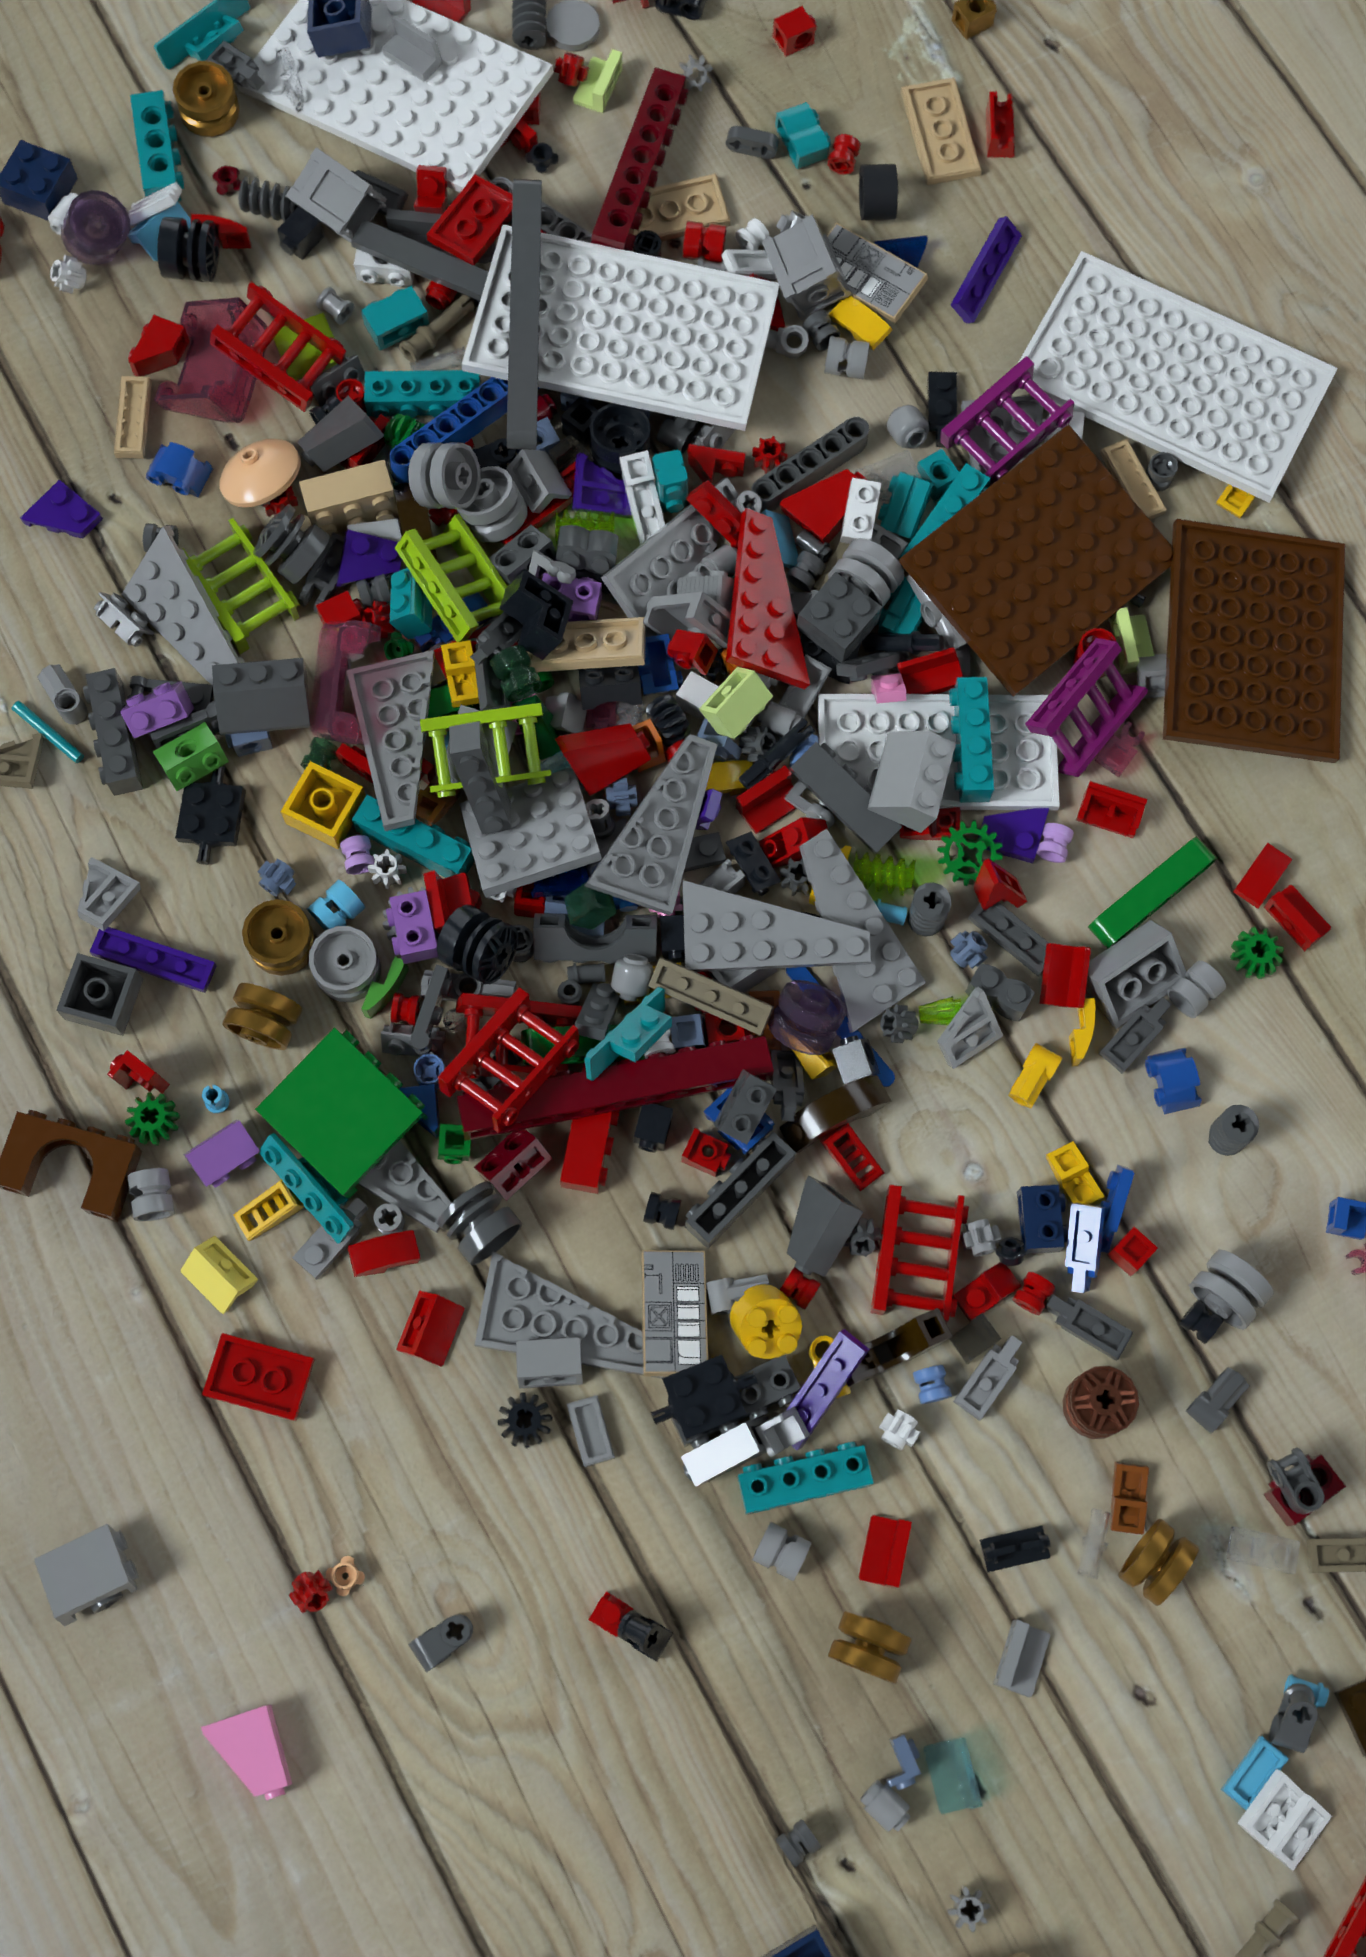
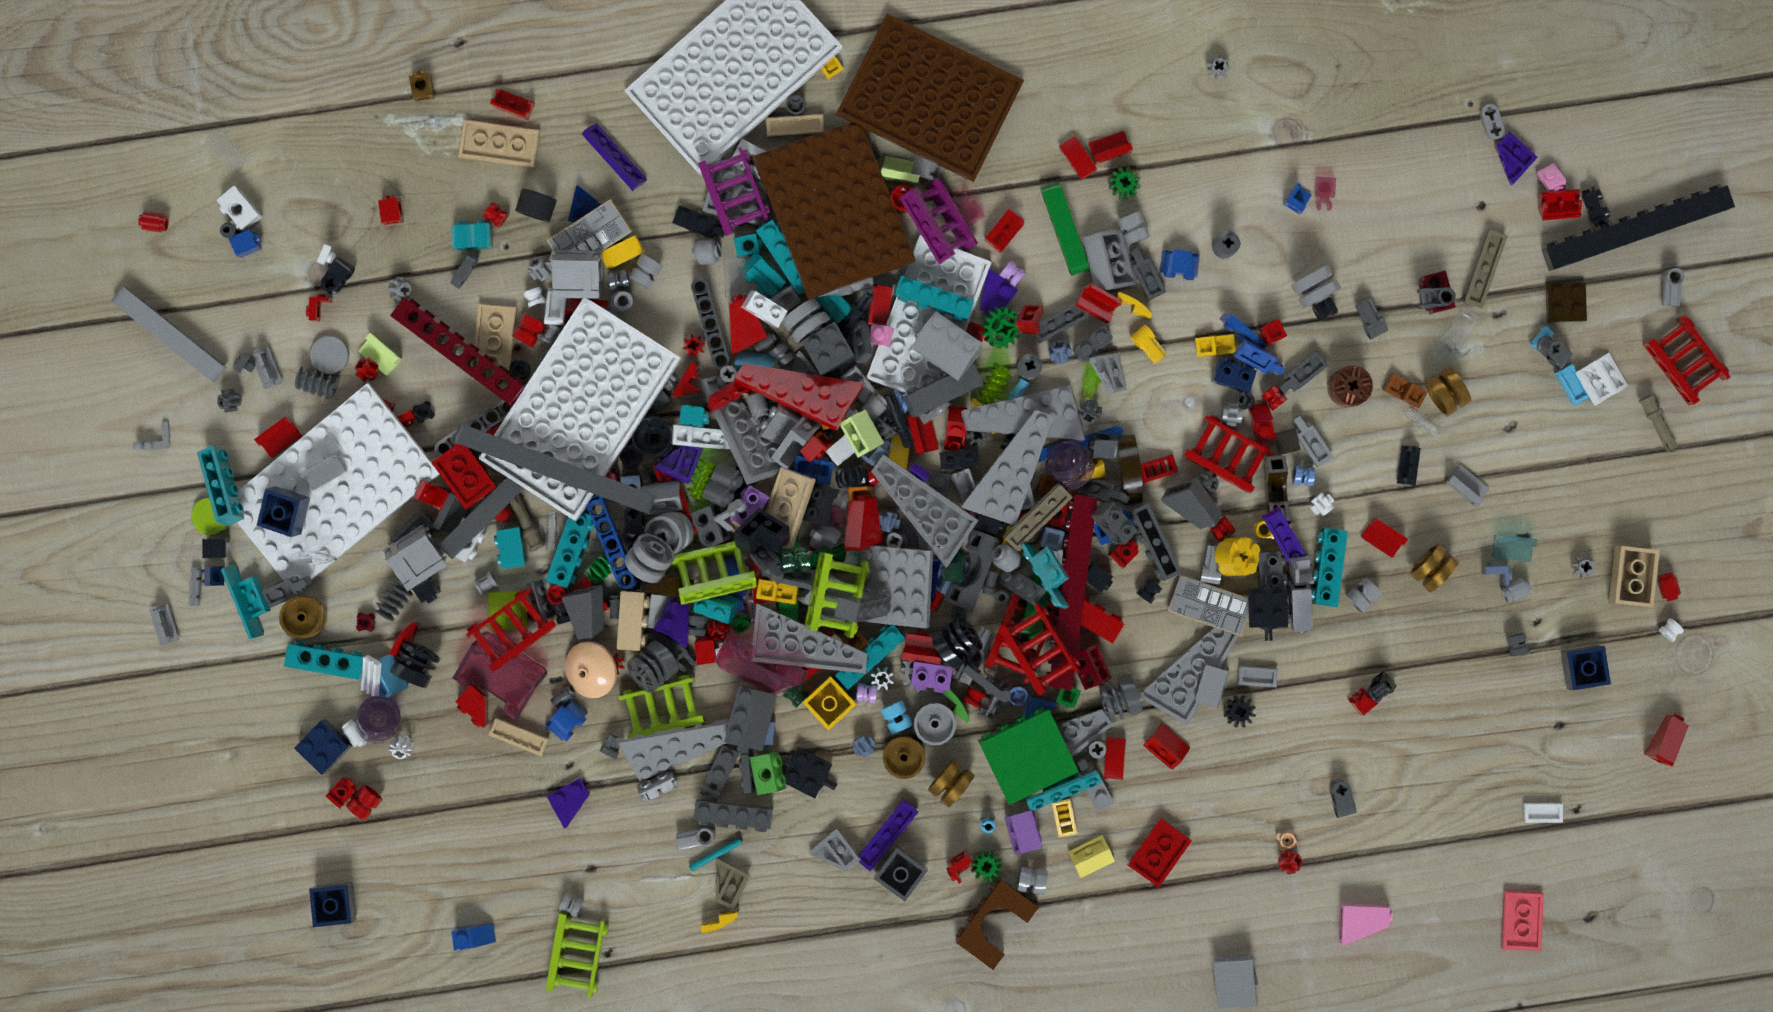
camera: 65 degrees left, 15 degrees up
(157, 709) = (731, 783): medium lavender brick -> none
(216, 457) = (566, 694): none -> dark grey pin

